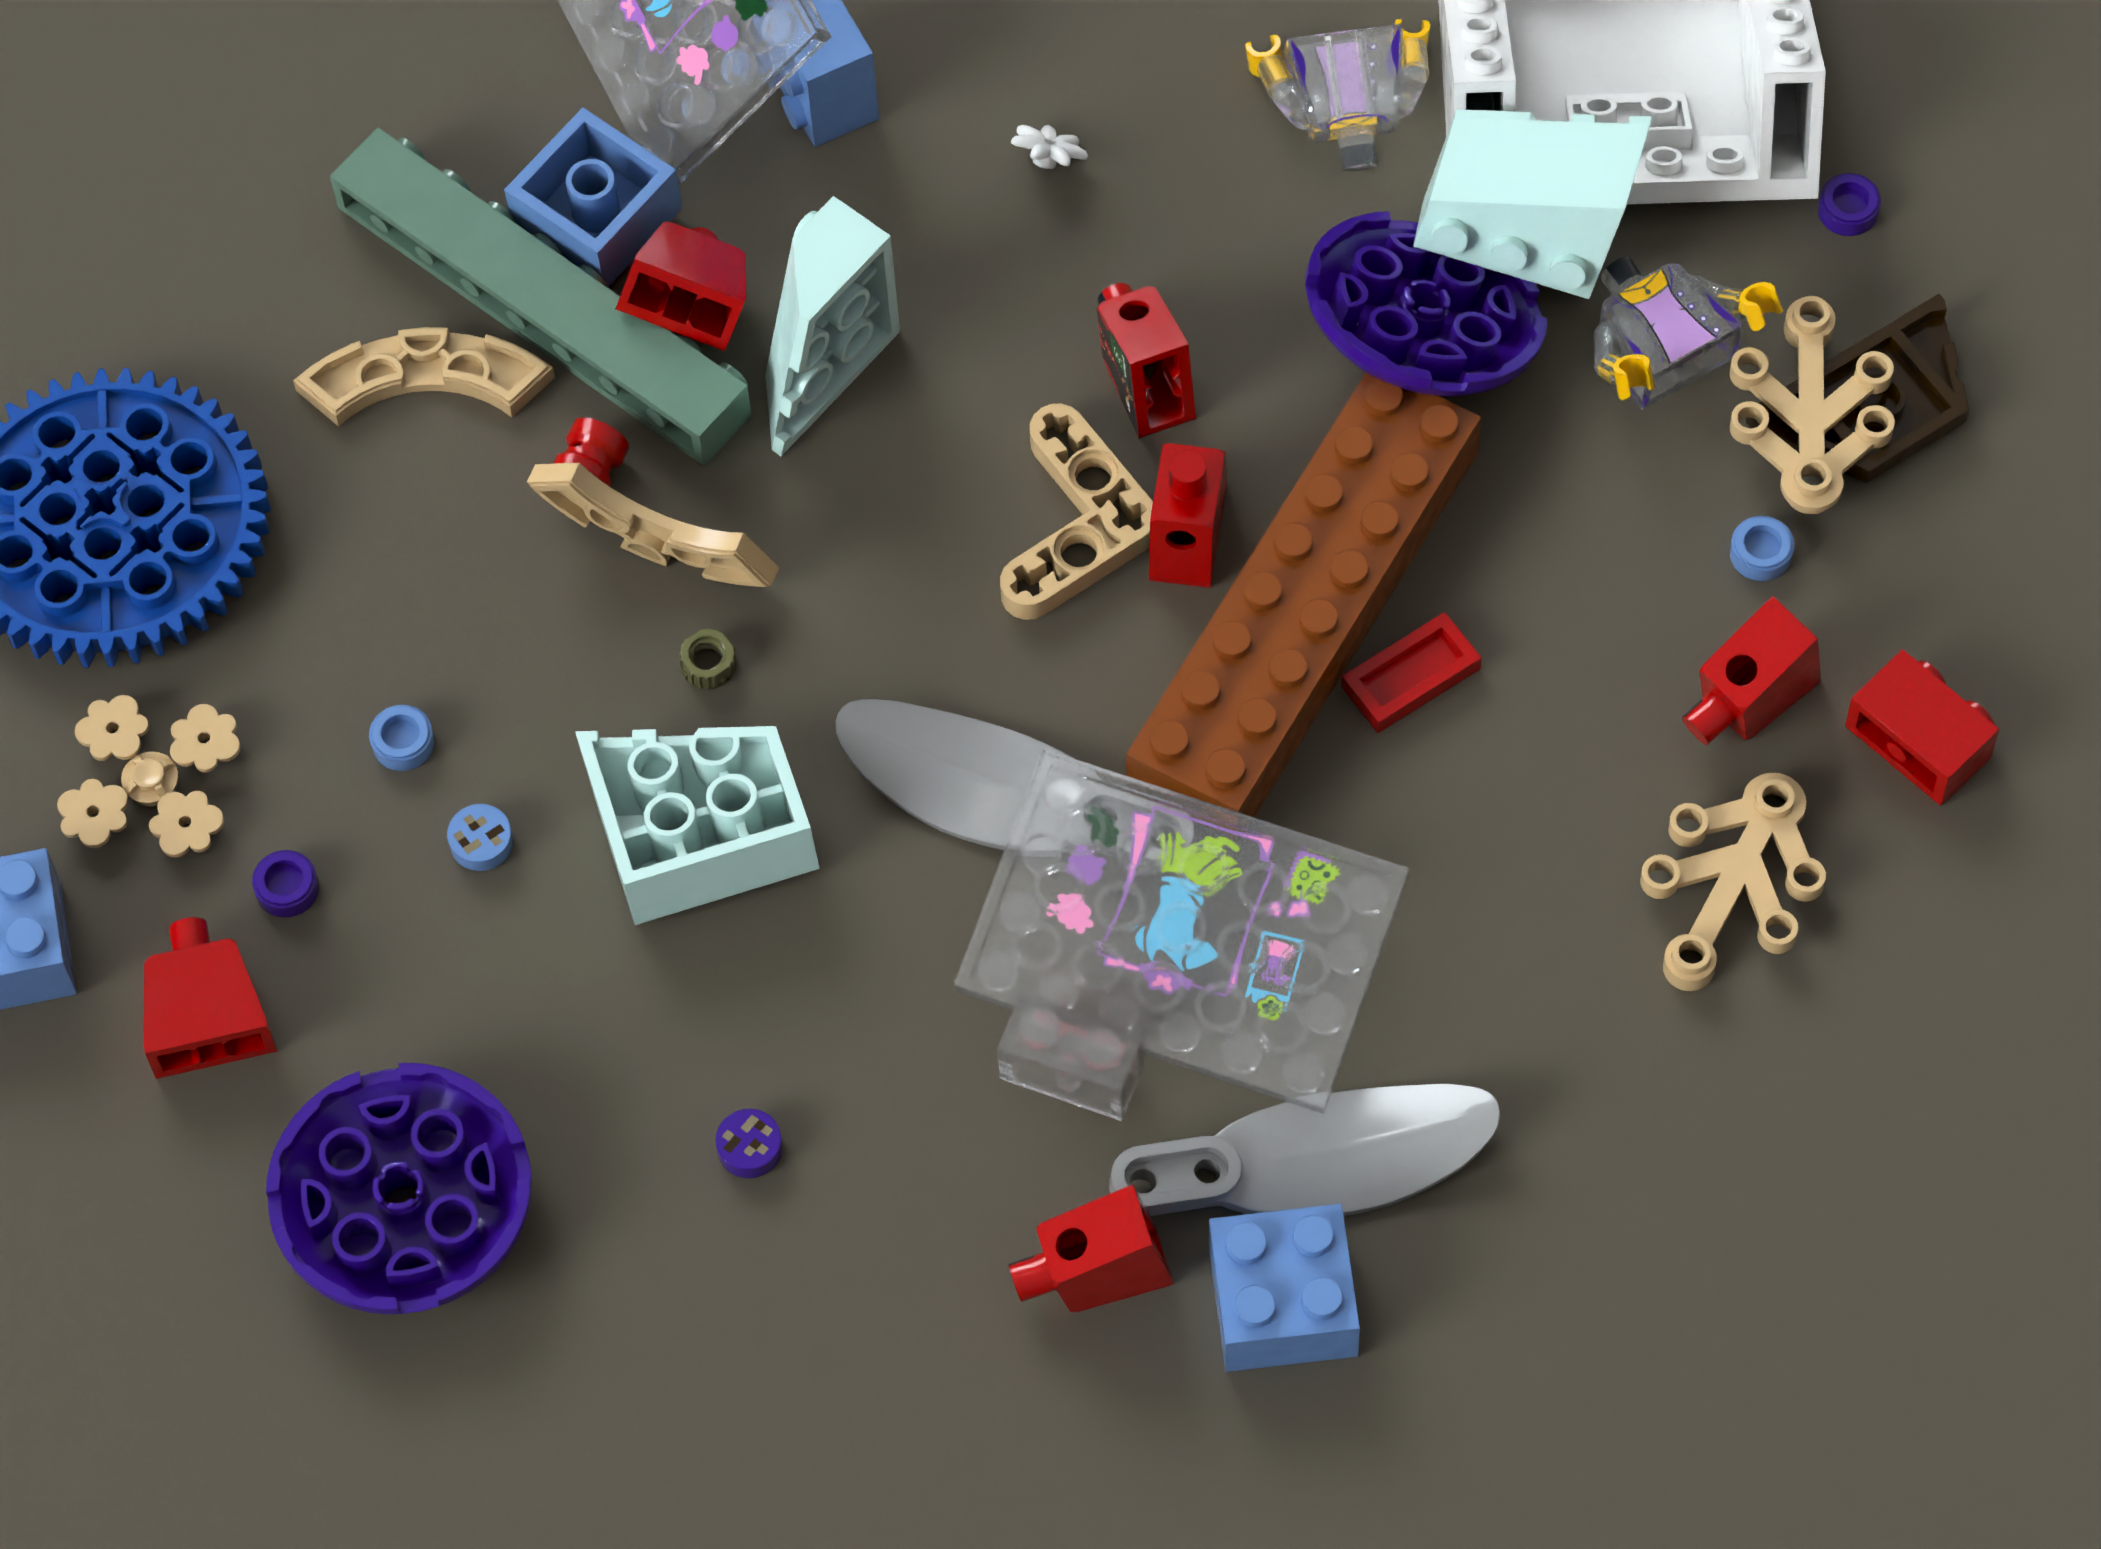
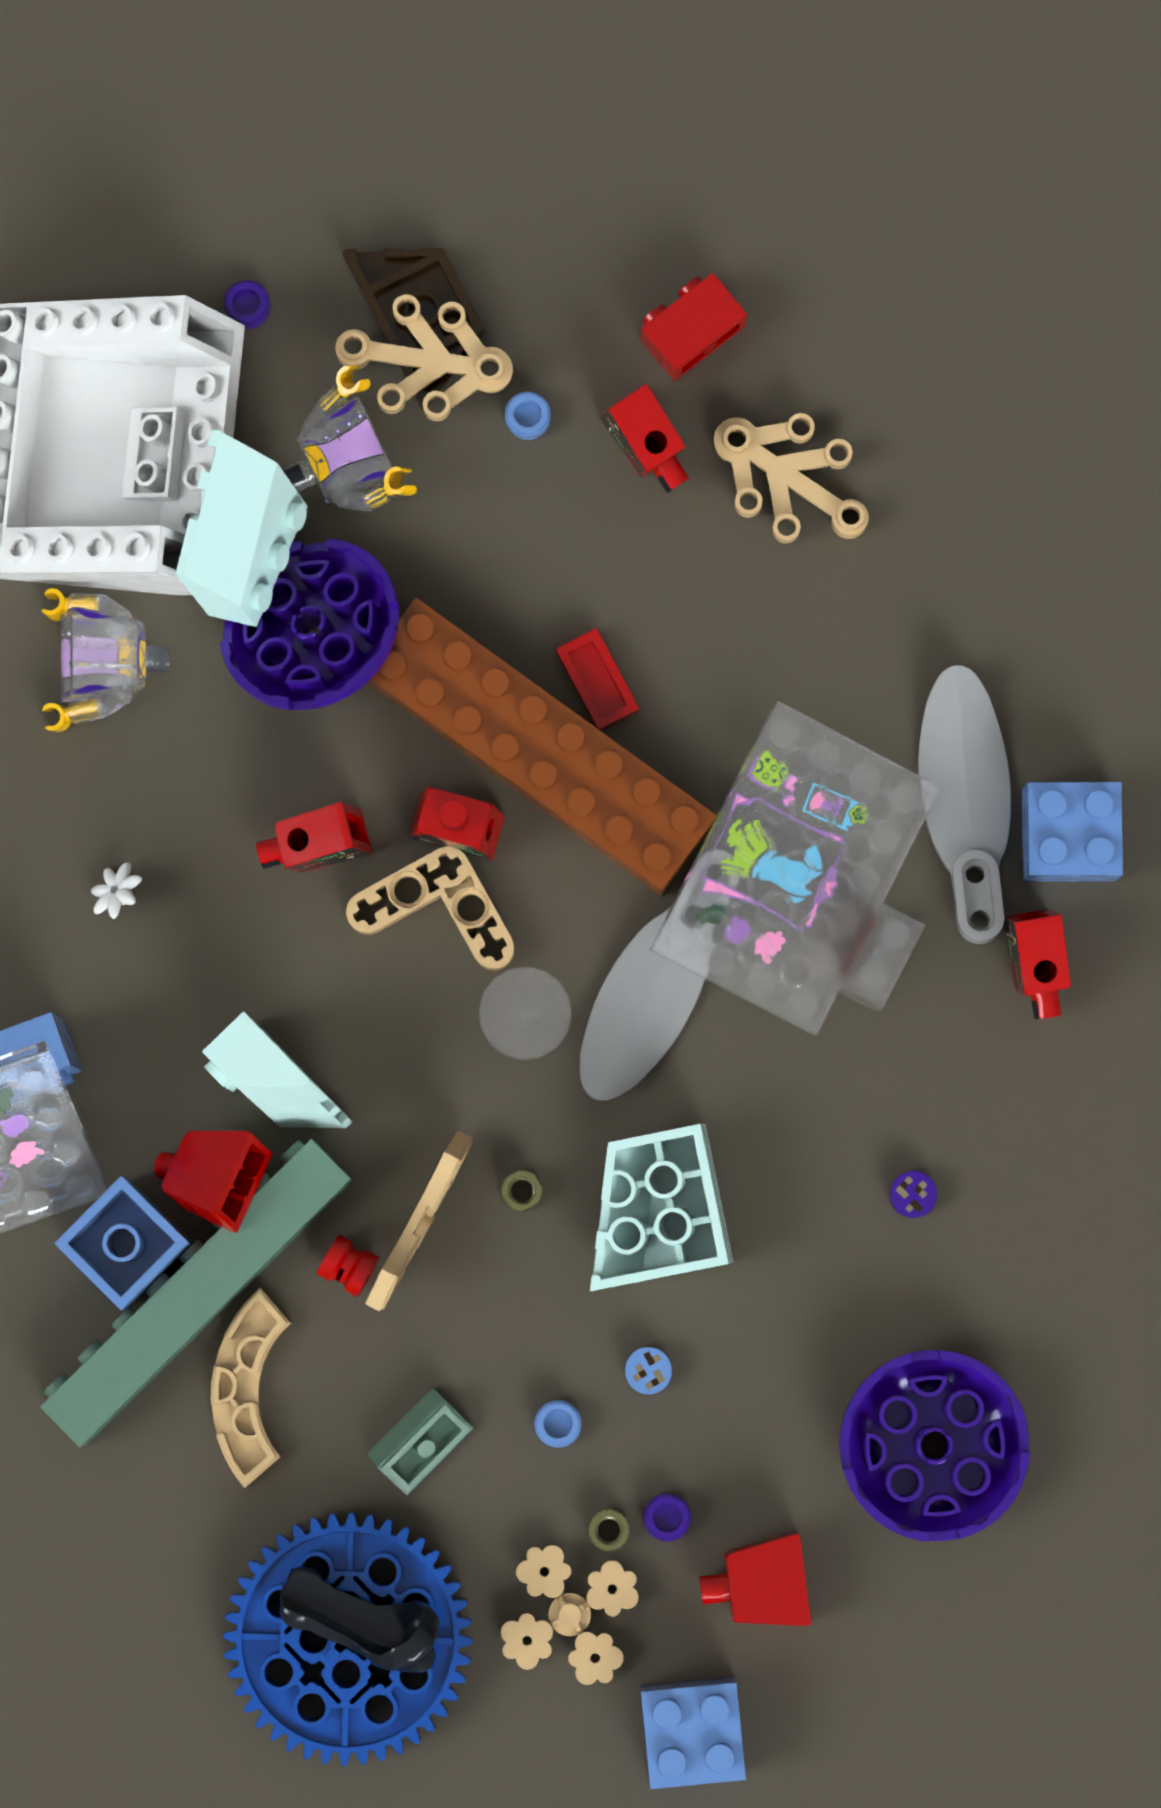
camera: 85 degrees left, 20 degrees up
(106, 530) = (388, 1635): none -> black hair
(260, 795) = (619, 1541): none -> olive axle
(366, 578) = (420, 1441): none -> sand green slope
(946, 637) = (525, 1013): none -> clear tile

